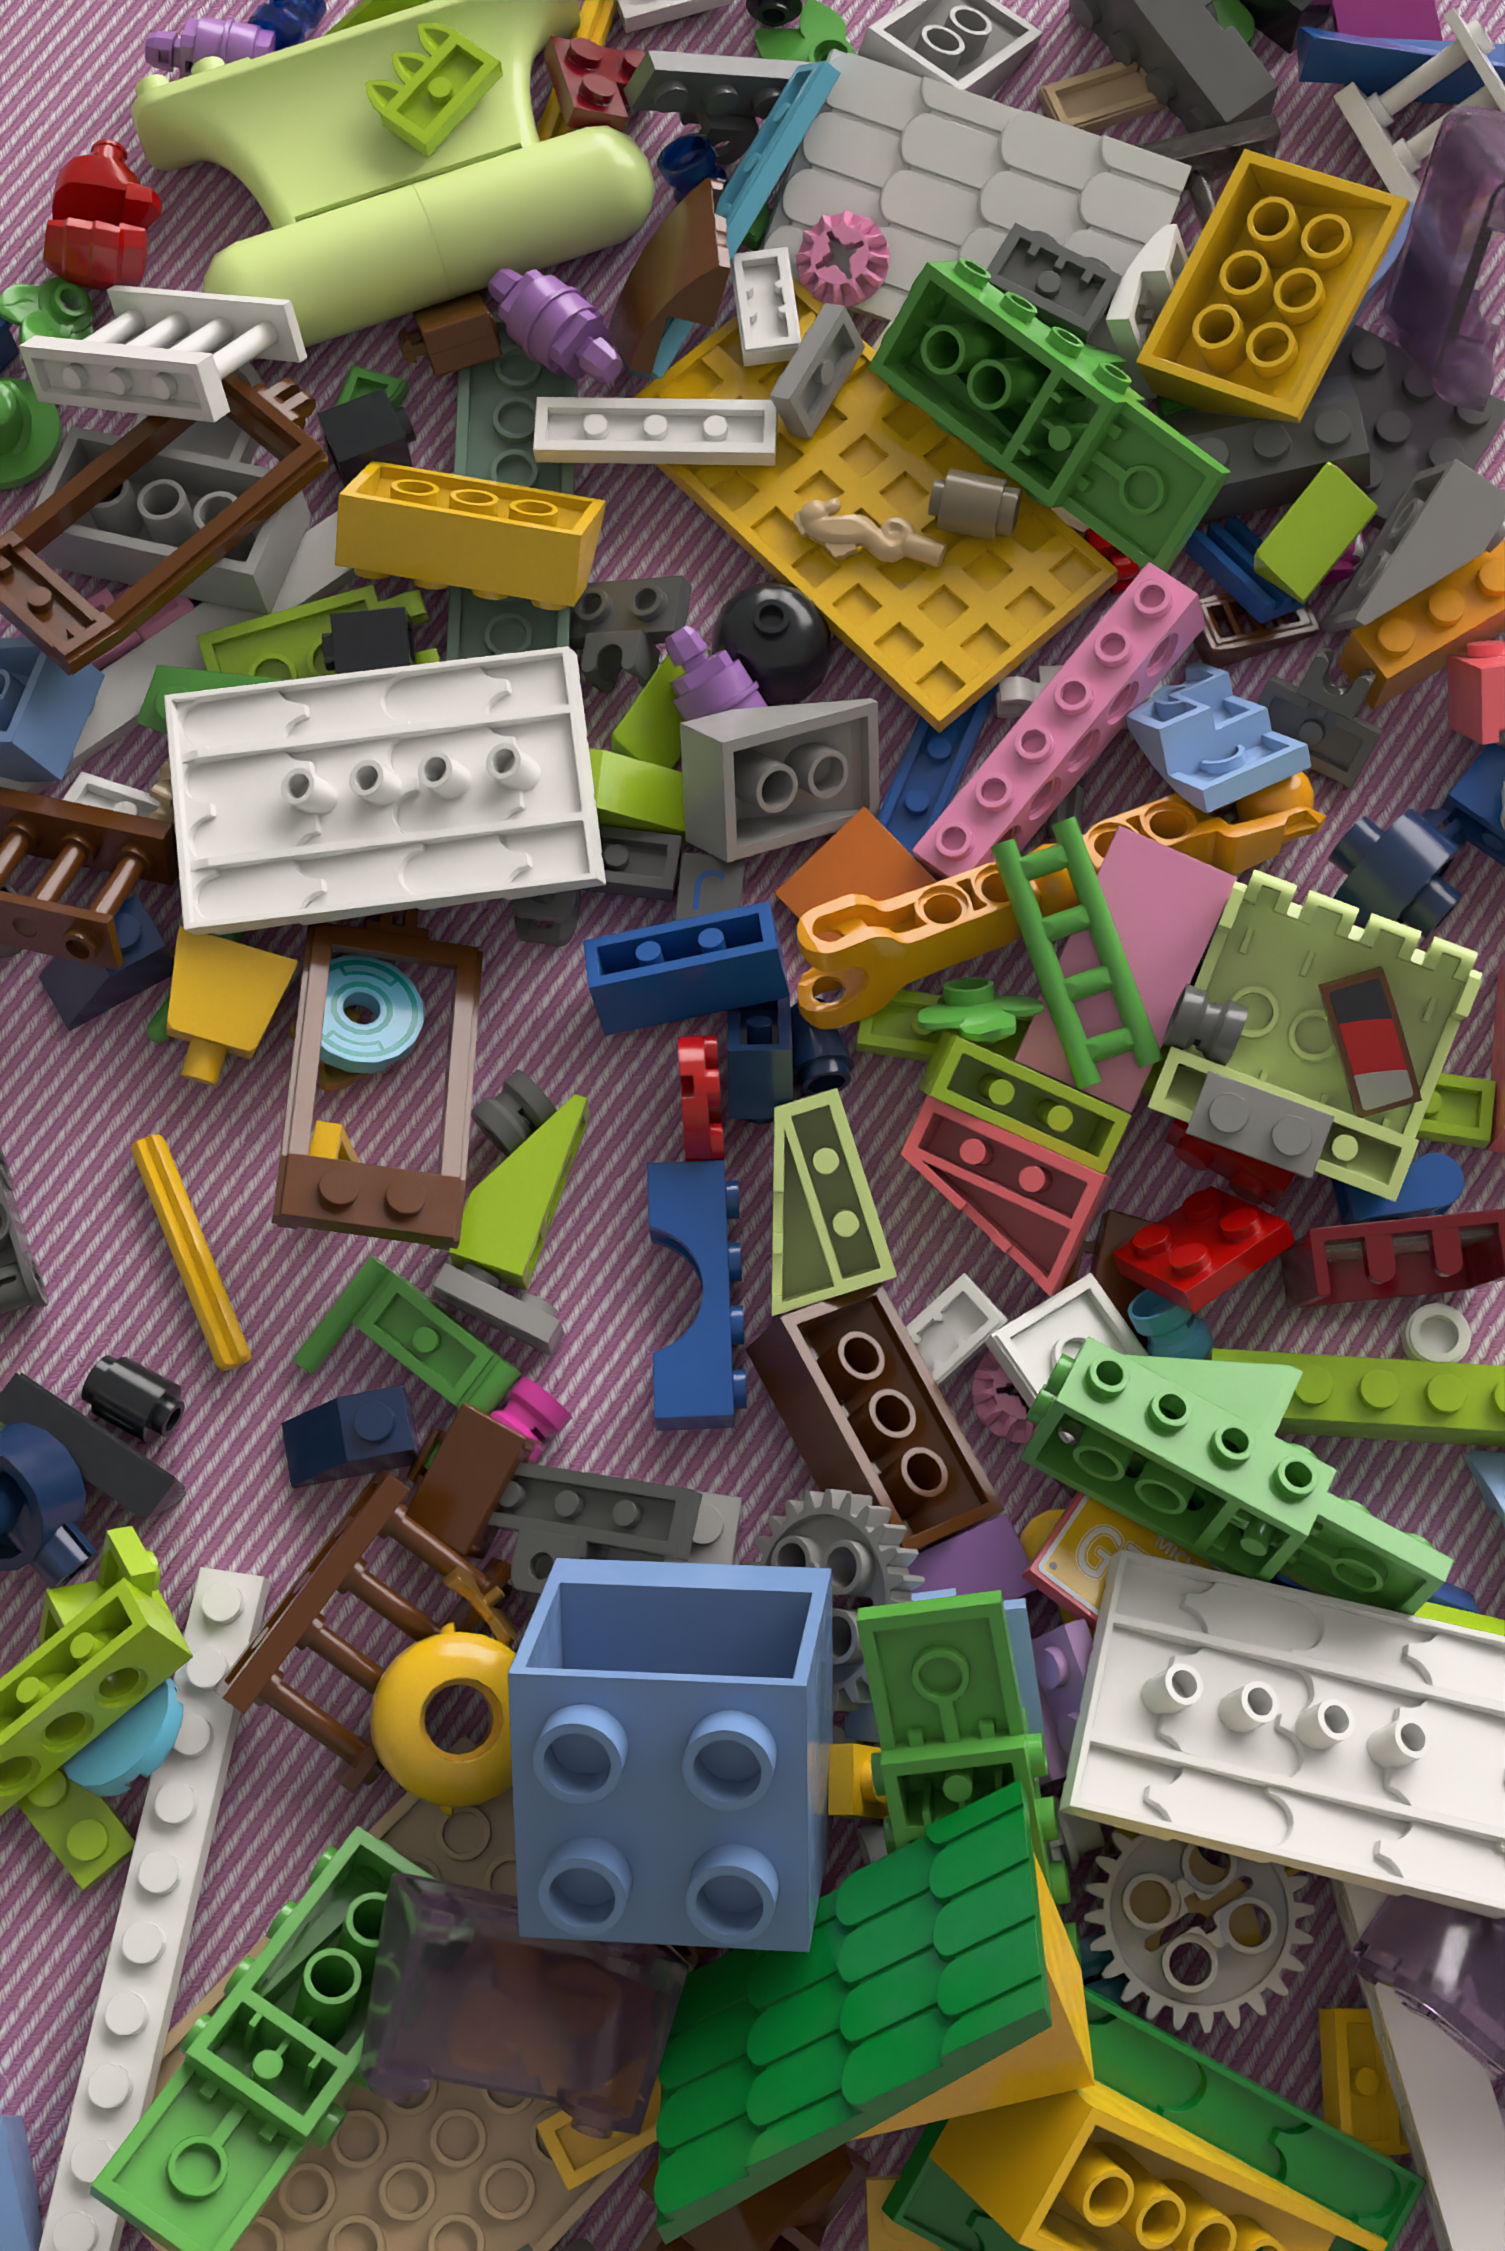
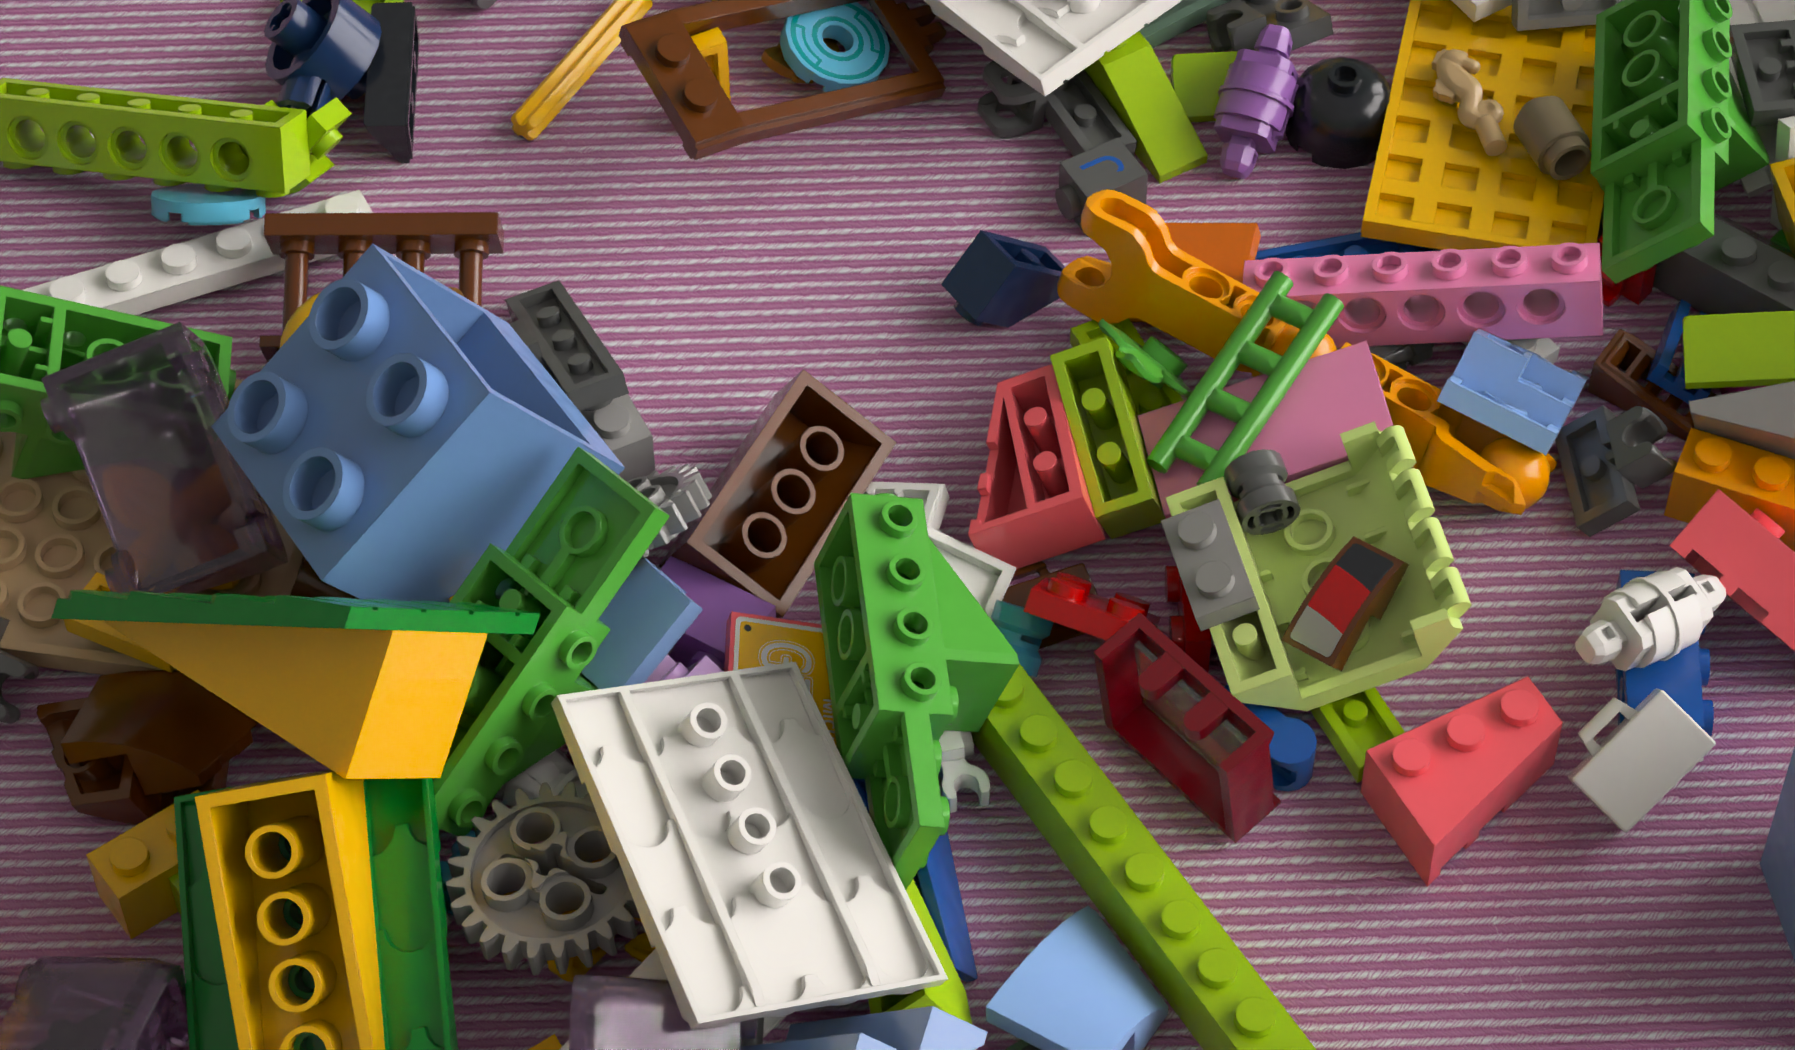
camera: 55 degrees right, 20 degrees down
(78, 1828) = (126, 225): lime plate -> none
(133, 1398) = (450, 86): black brick -> none
(351, 1437) = (535, 219): dark blue slope -> none
(416, 1335) = (624, 215): bright green plate -> none
(466, 1479) = (547, 285): reddish brown piece -> none
(477, 1295) = (684, 223): light grey plate -> none
(513, 1112) = (837, 169): dark grey wheel -> none
(517, 1201) = (776, 208): lime slope -> none
(533, 1413) = (625, 301): dark pink wheel -> none
(686, 968) = (1023, 187): blue brick -> none
(695, 1373) = (734, 379): blue arch -> none
(700, 1098) = (930, 247): red plate -> none
(777, 774) = (1233, 155): light grey slope -> none
(818, 1056) = (1039, 319): dark blue cone -> none
(822, 1208) = (924, 358): yellowish green wedge -> none
(1401, 869) = (1524, 574): dark blue piece -> none
(1436, 1334) = (1175, 831): white tile -> none

